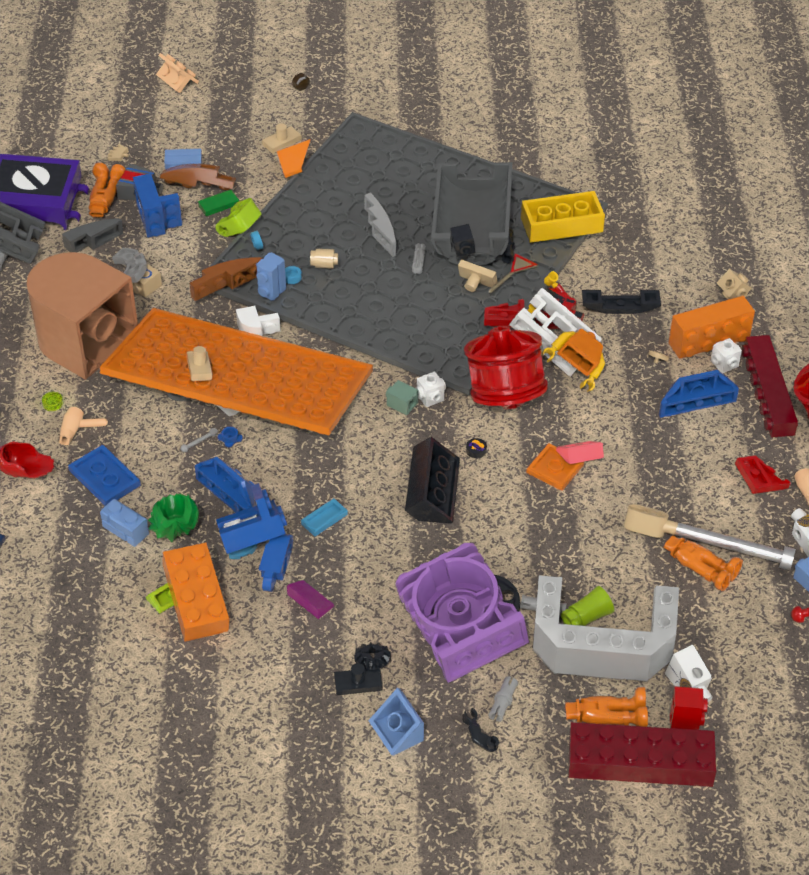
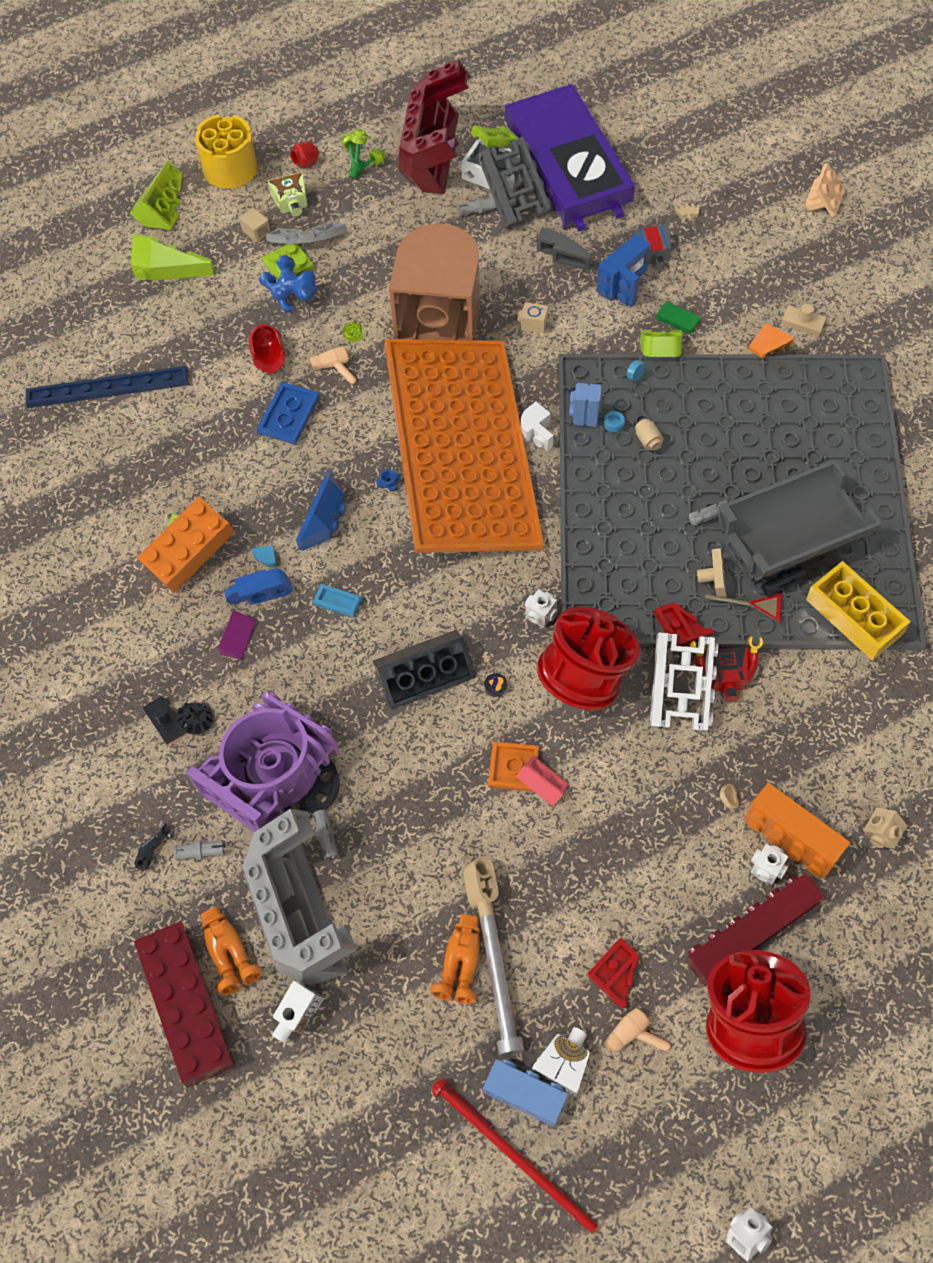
camera: 65 degrees right, 15 degrees up
(100, 197) = (621, 228): orange piece -> none
(124, 522) = (240, 454): medium blue brick -> none
(134, 261) = (550, 294): light grey tile -> none
(174, 516) = (262, 485): green hair -> none
(182, 156) = (707, 263): medium blue brick -> none
(190, 174) = (700, 285): dark orange slope -> none
(199, 364) = (436, 409): tan tile -> none
(213, 432) = (389, 464): light grey hinge -> none
(228, 273) = (568, 367): dark orange slope -> none
(252, 524) = (278, 547): blue brick -> none
(300, 81) = (896, 291): dark brown tile -> none
(381, 225) = (729, 459): light grey slope -> none
(398, 723) = (128, 775): medium blue slope -> none
(402, 397) = (516, 589): sand green brick -> none
(462, 240) = (741, 535): black brick -> none
(582, 352) = (664, 717): orange torso -> none
(589, 608) = (336, 877): lime plant -> none
(621, 304) = (782, 725): black slope -> none
(688, 708) = (247, 1024): red brick -> none
(698, 392) = (690, 856): blue wedge -> none

